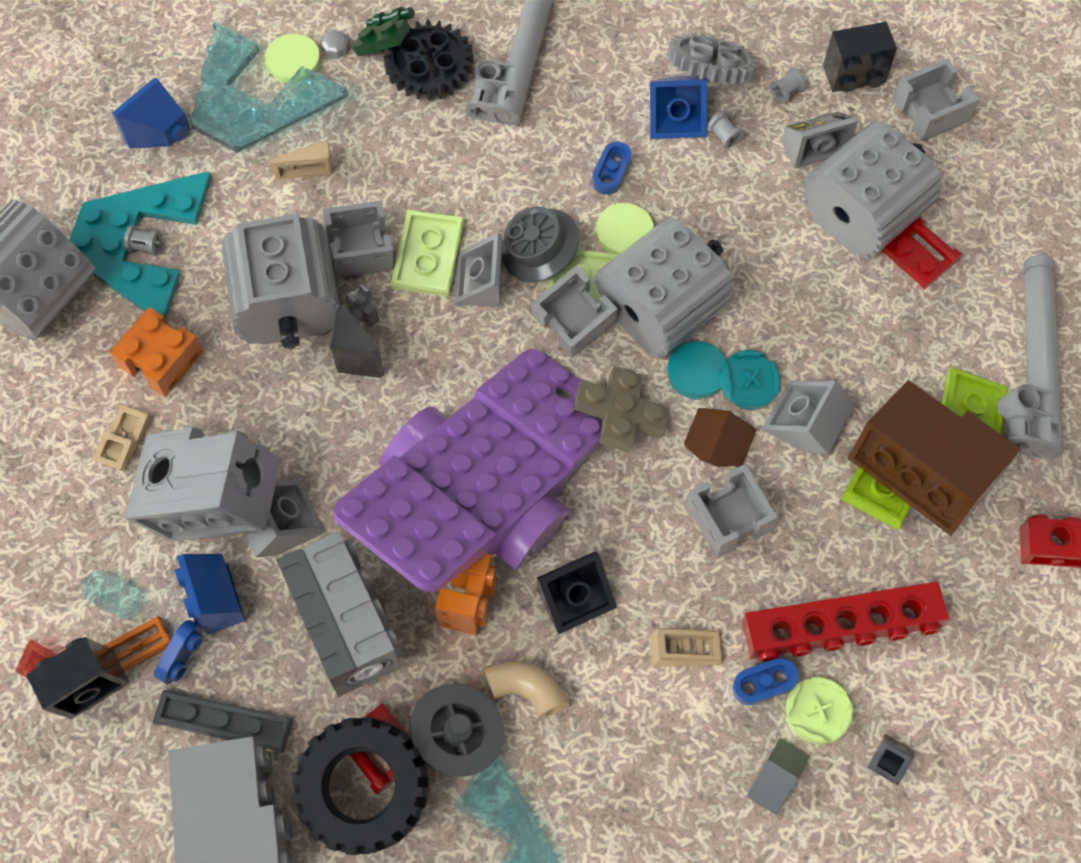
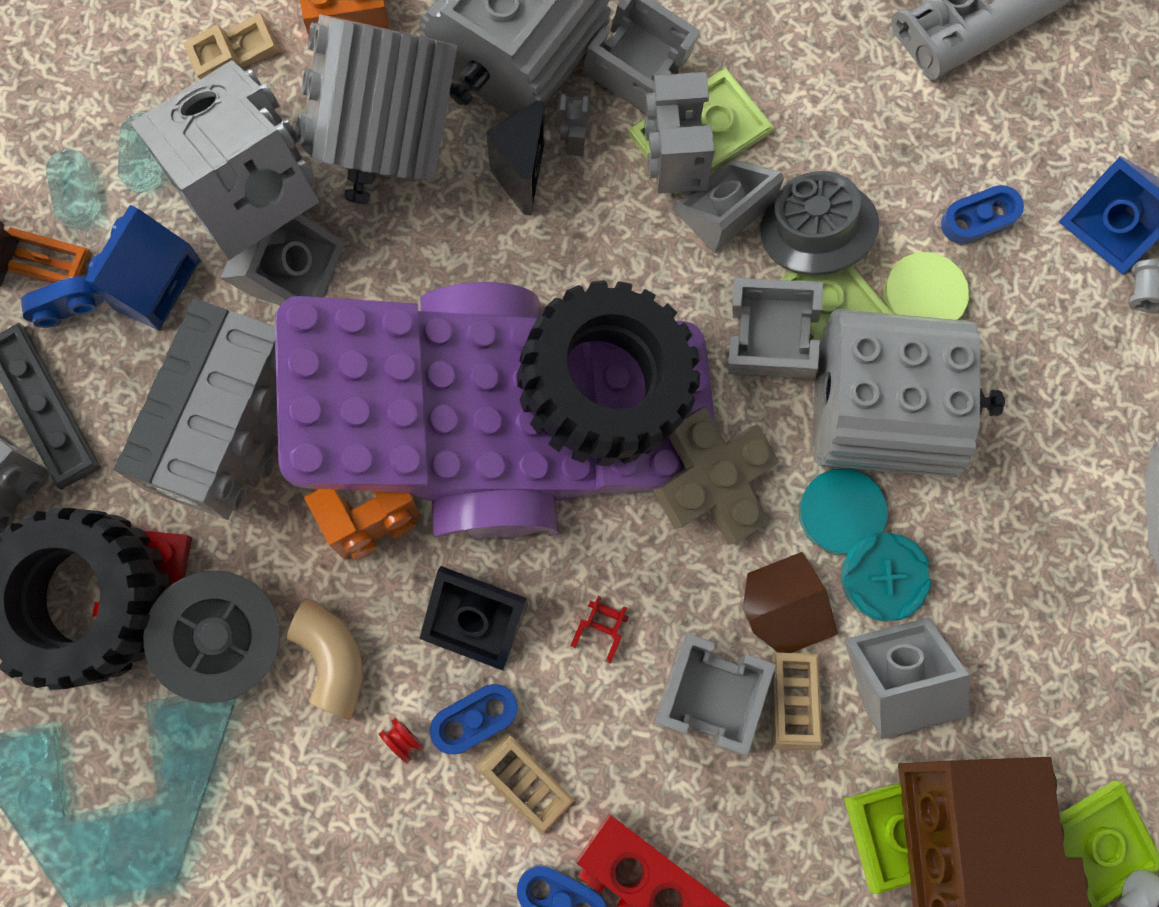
camera: 40 degrees right, 10 degrees up
(131, 540) = (136, 164): none -> clear light blue tile
(255, 380) = (374, 101): none -> light grey piece
(434, 270) = (677, 141): none -> light grey piece
(529, 368) = (634, 325): none -> black tyre
(605, 687) = (401, 740): none -> red bush
(628, 642) = (474, 719): none -> blue plate
(651, 534) = (608, 611): none -> red piece
(788, 479) = (812, 702): none -> tan slope

